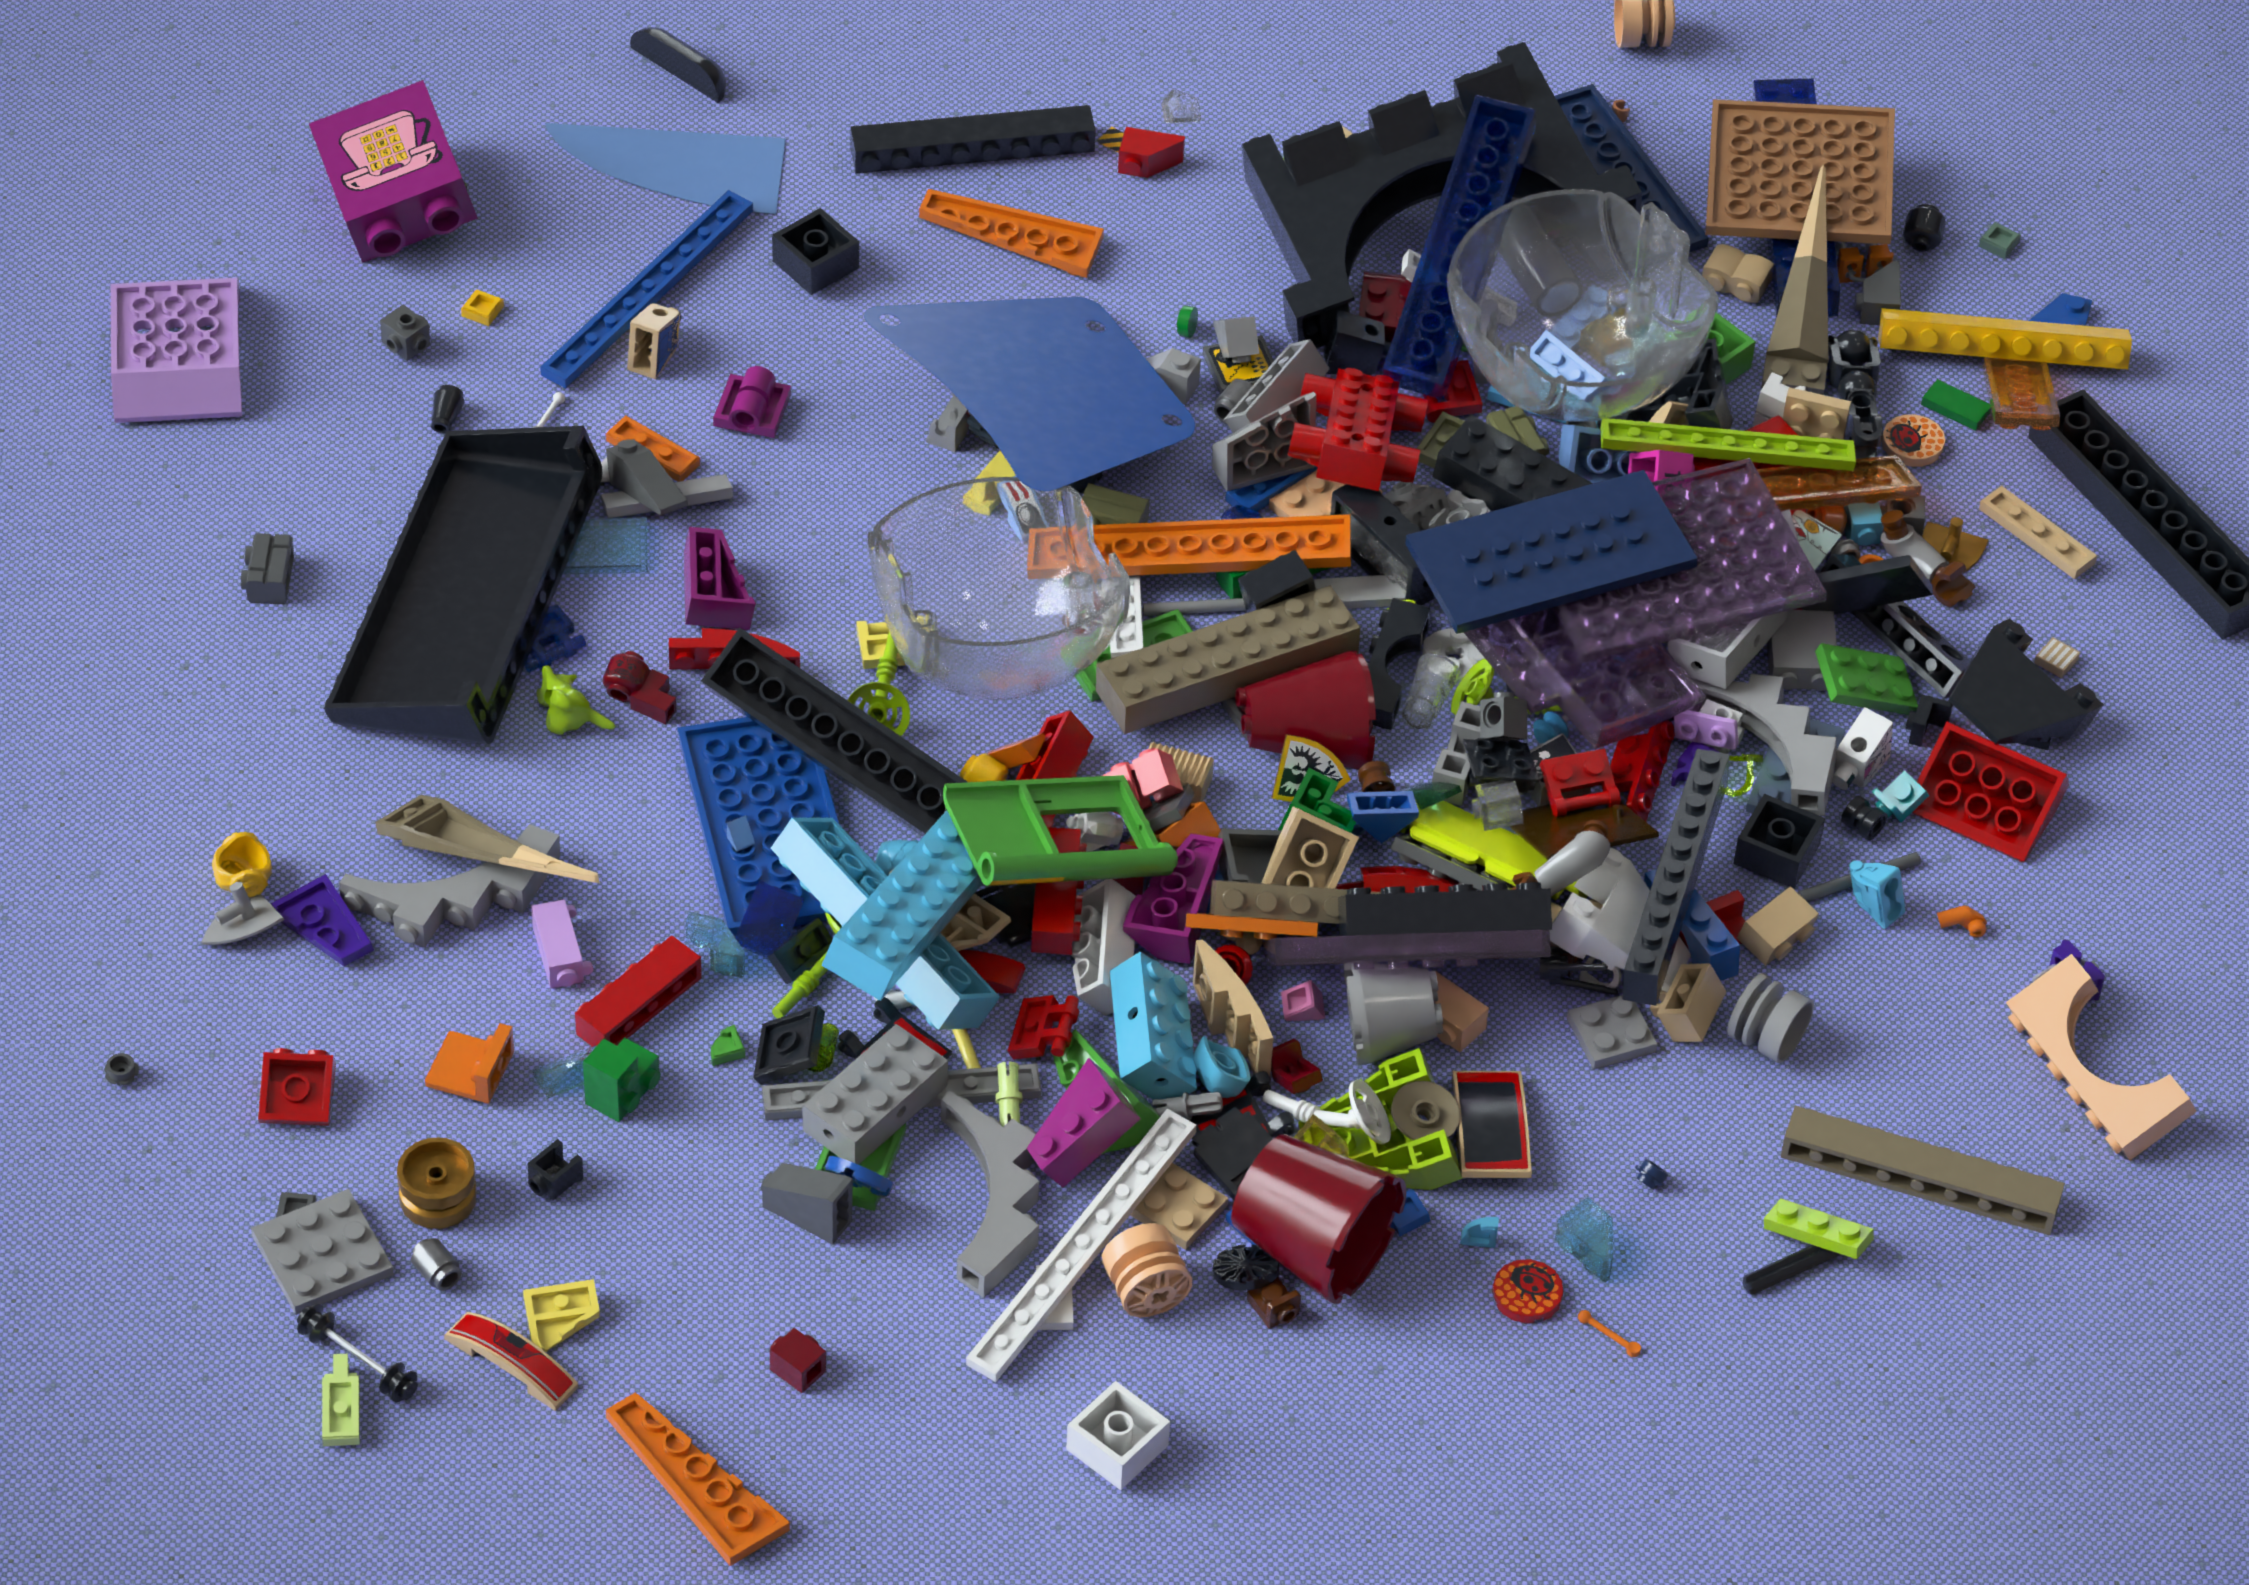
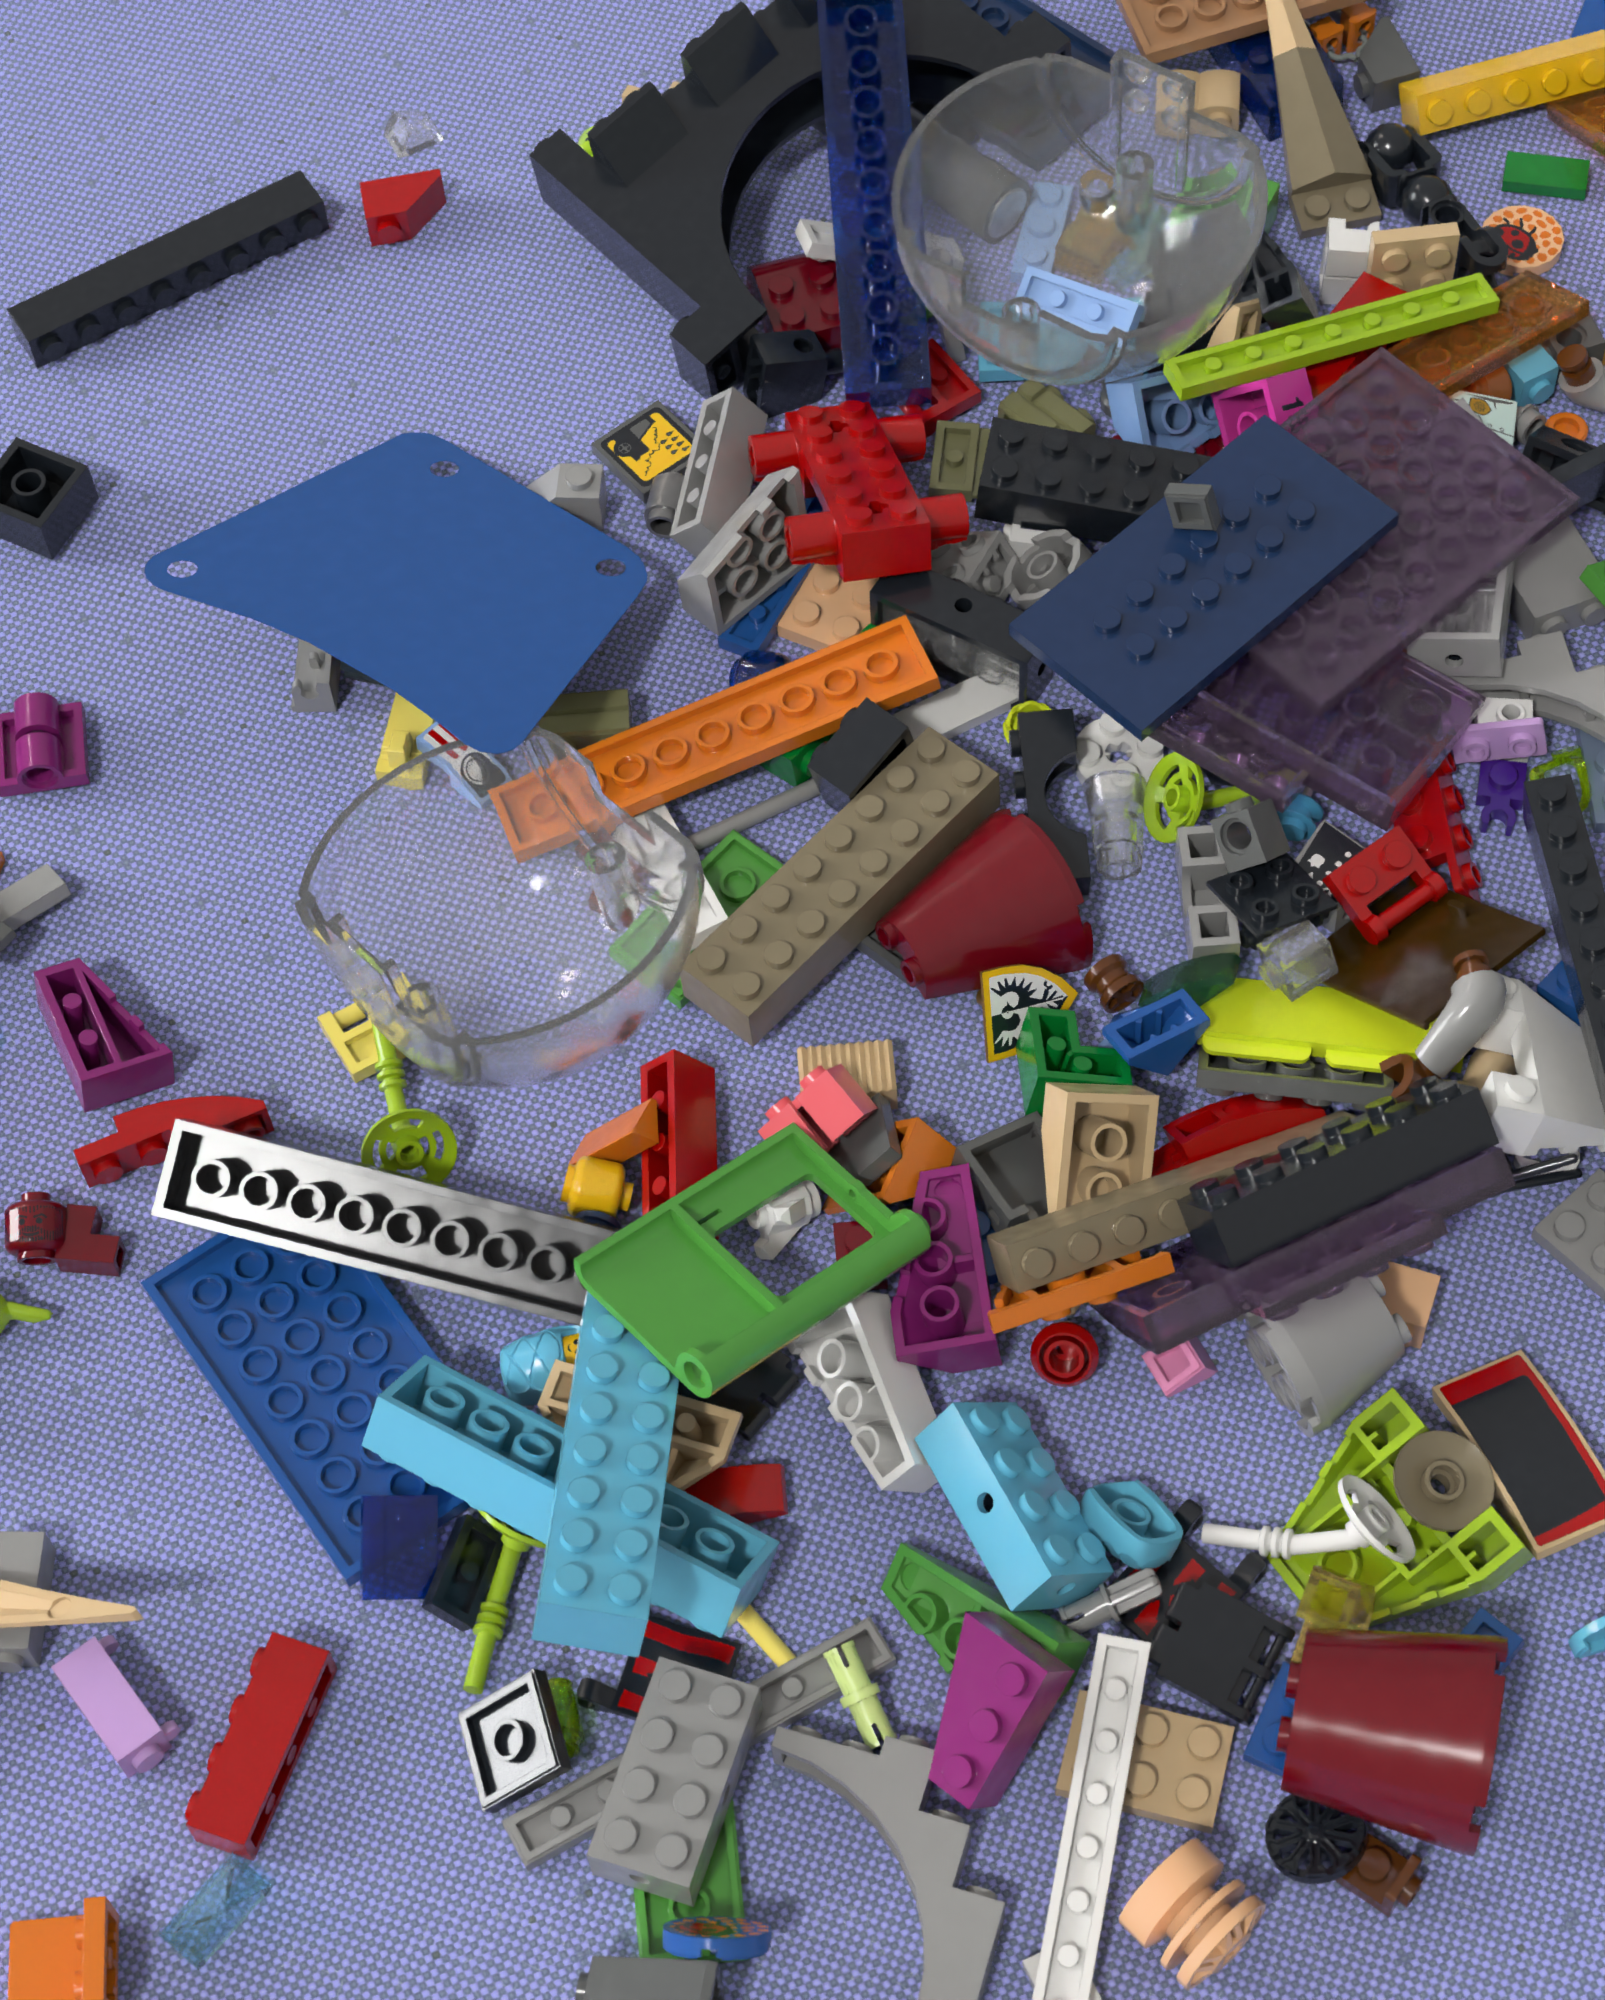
camera: 15 degrees left, 10 degrees up
(619, 1077) = (293, 1903): green brick -> none
(725, 951) = (358, 1622): clear light blue slope -> none
(727, 1047) = (422, 1772): bright green tile -> none
(740, 833) = (300, 1422): medium blue piece -> none
(1030, 234) = (309, 370): orange wing -> none
(1034, 1026) = (840, 1558): red plate -> none
(1057, 903) = (795, 1377): red brick -> none
(1112, 139) = (346, 204): sticker -> none
(1187, 321) = (555, 416): green tile -> none
(1231, 1008) = (1100, 1420): tan slope -> none
(1237, 338) = (633, 416): light grey slope -> none
(1293, 1070) = (1224, 1478): dark red bracket -> none
(1559, 503) = (1192, 506): none -> dark grey tile

